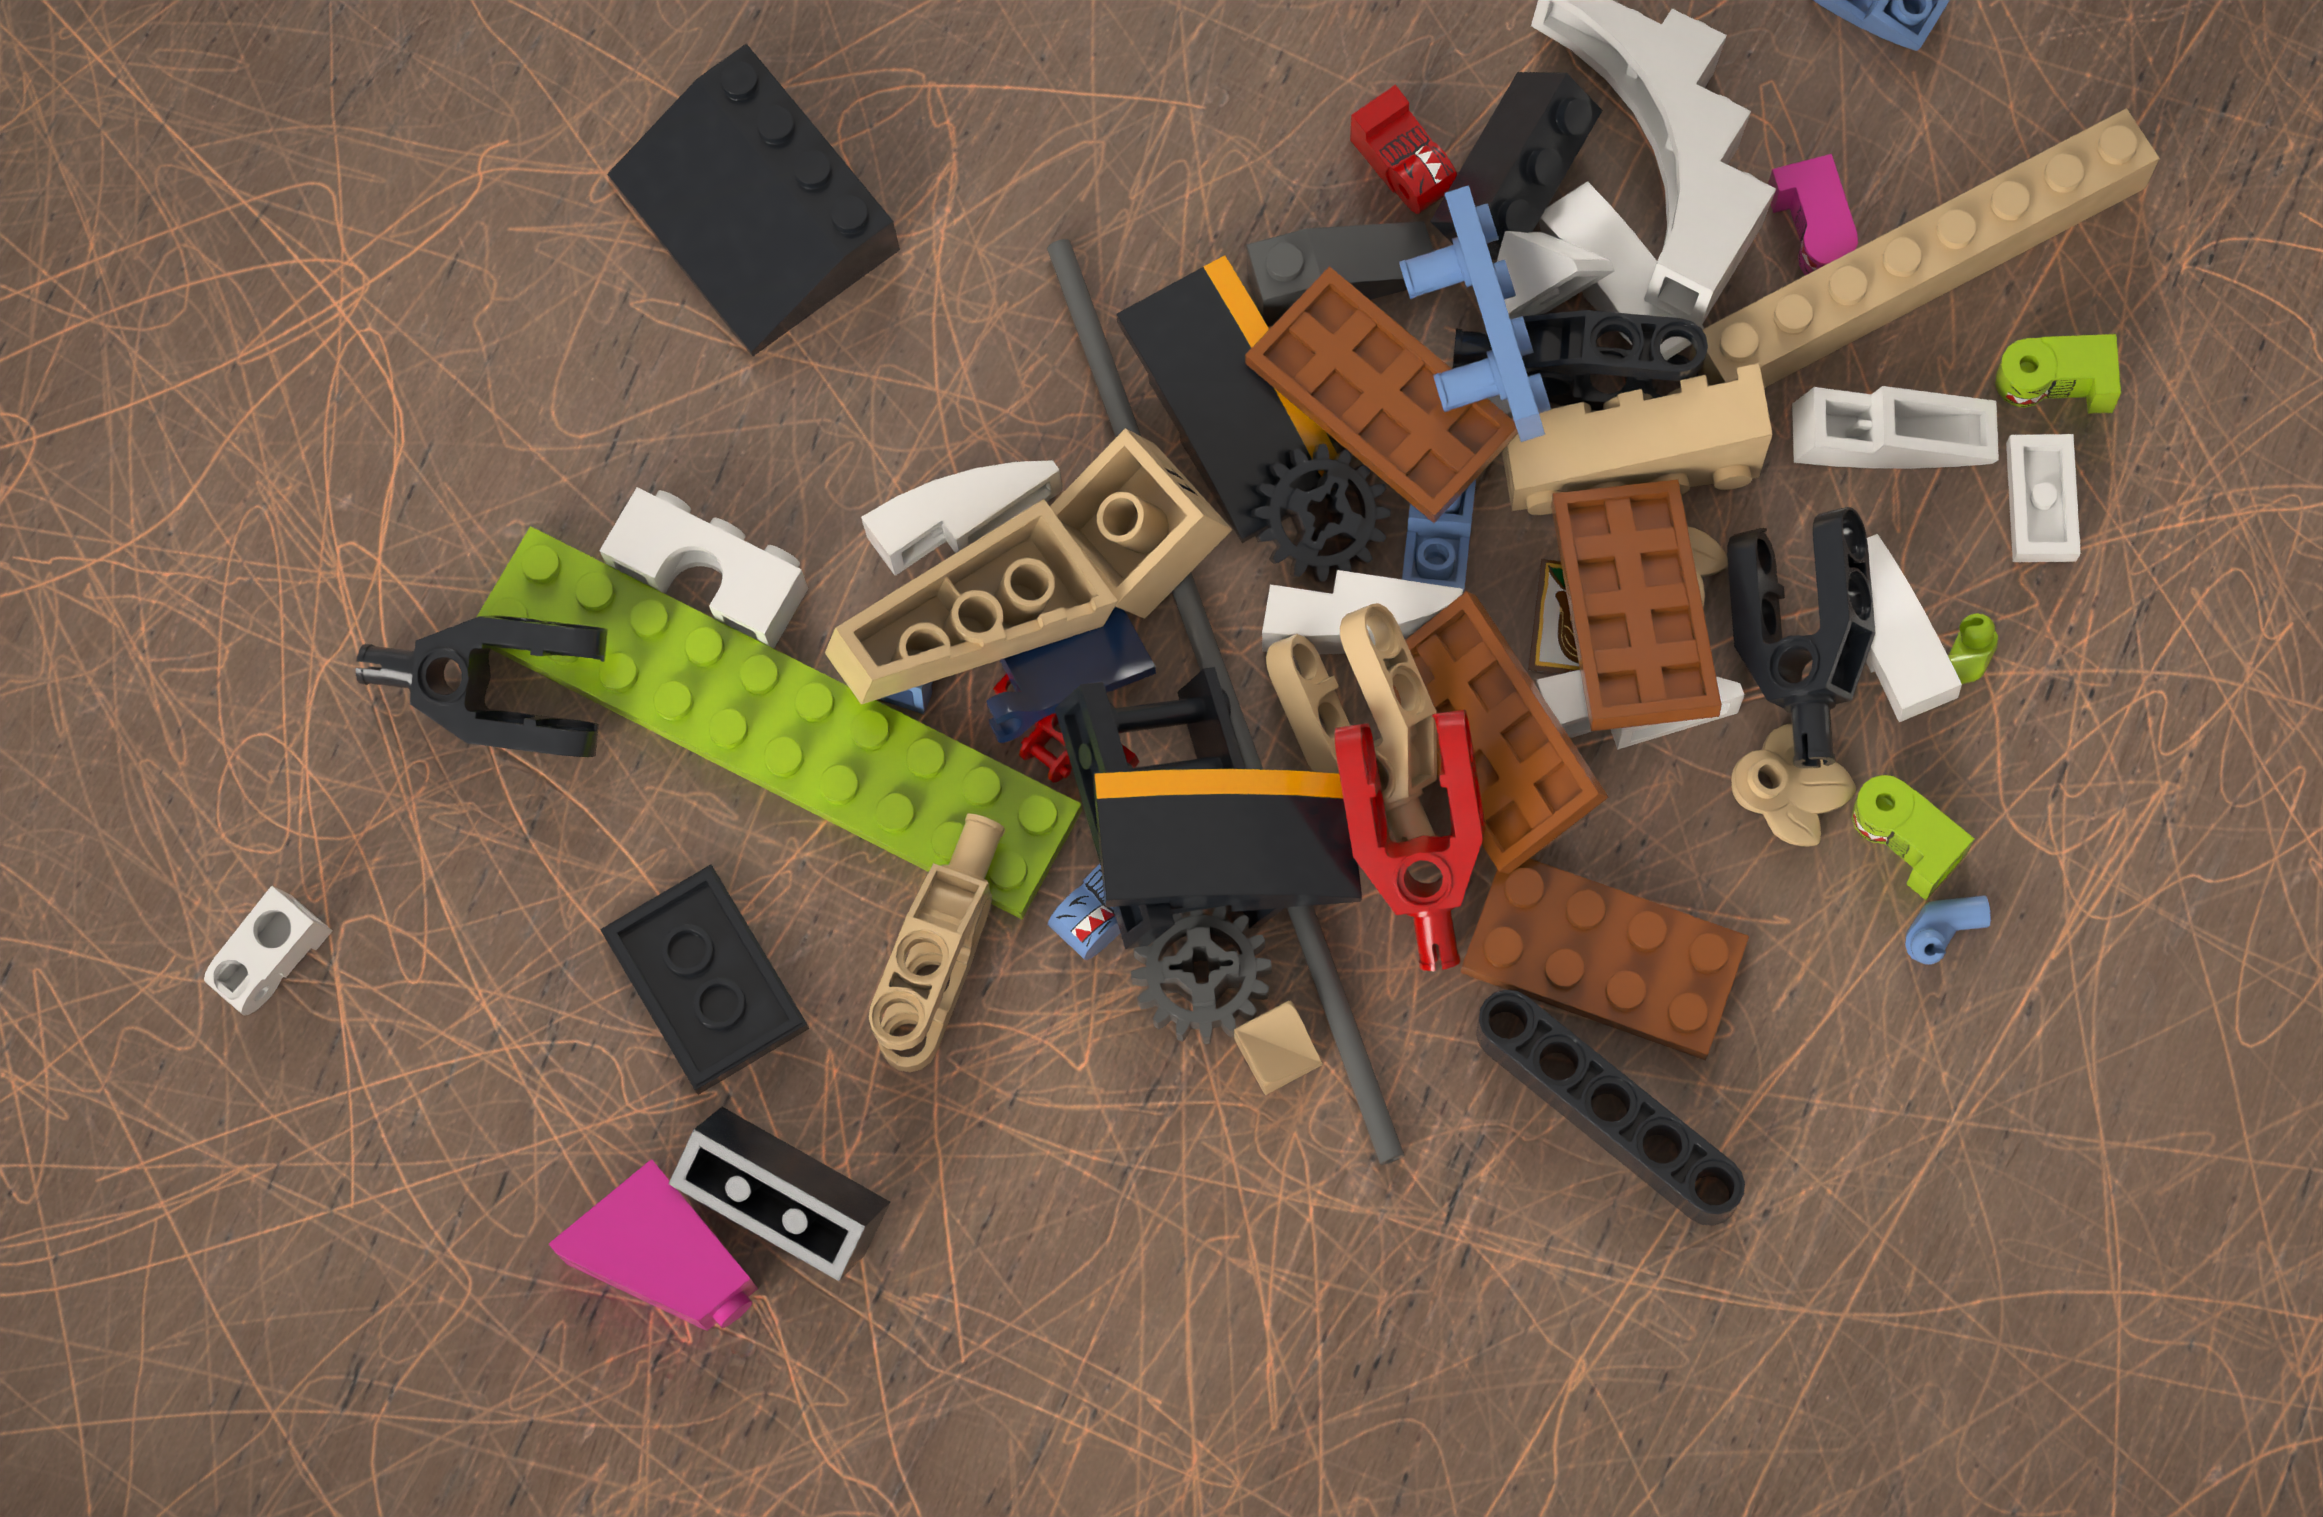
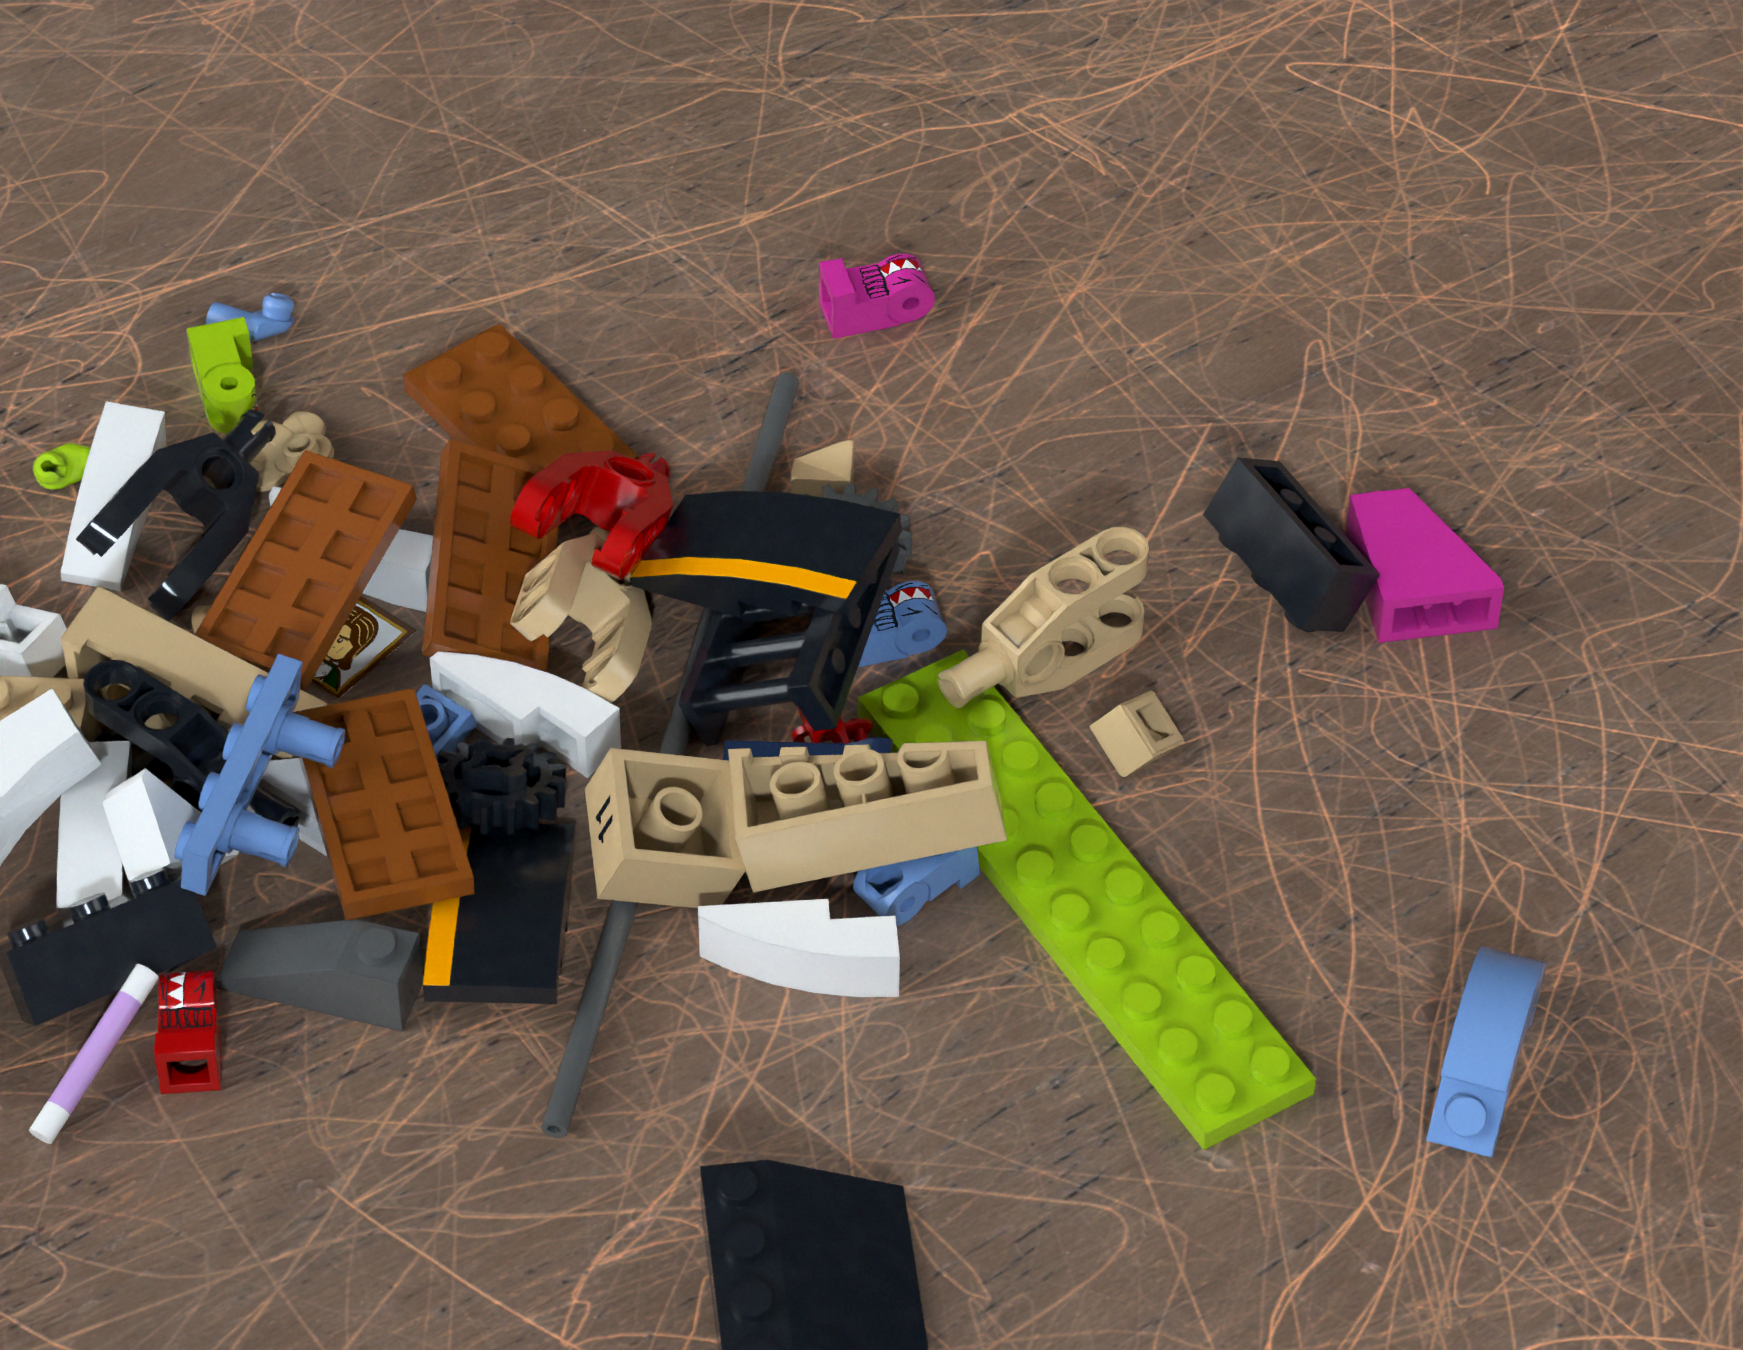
camera: 155 degrees left, 25 degrees down
(264, 950) = (1636, 920): white leg -> none
(331, 739) = (1485, 1050): none -> medium blue arch
(464, 710) = (1325, 1030): black piece -> none
(661, 539) = (1087, 1056): white arch -> none
(704, 979) = (1260, 741): black tile -> none
(814, 913) = (1136, 733): none -> tan slope
(1375, 1311) = (873, 294): none -> dark pink leg
(1456, 84) = (93, 1054): none -> lavender bar
(1622, 1137) = (601, 324): black beam -> none

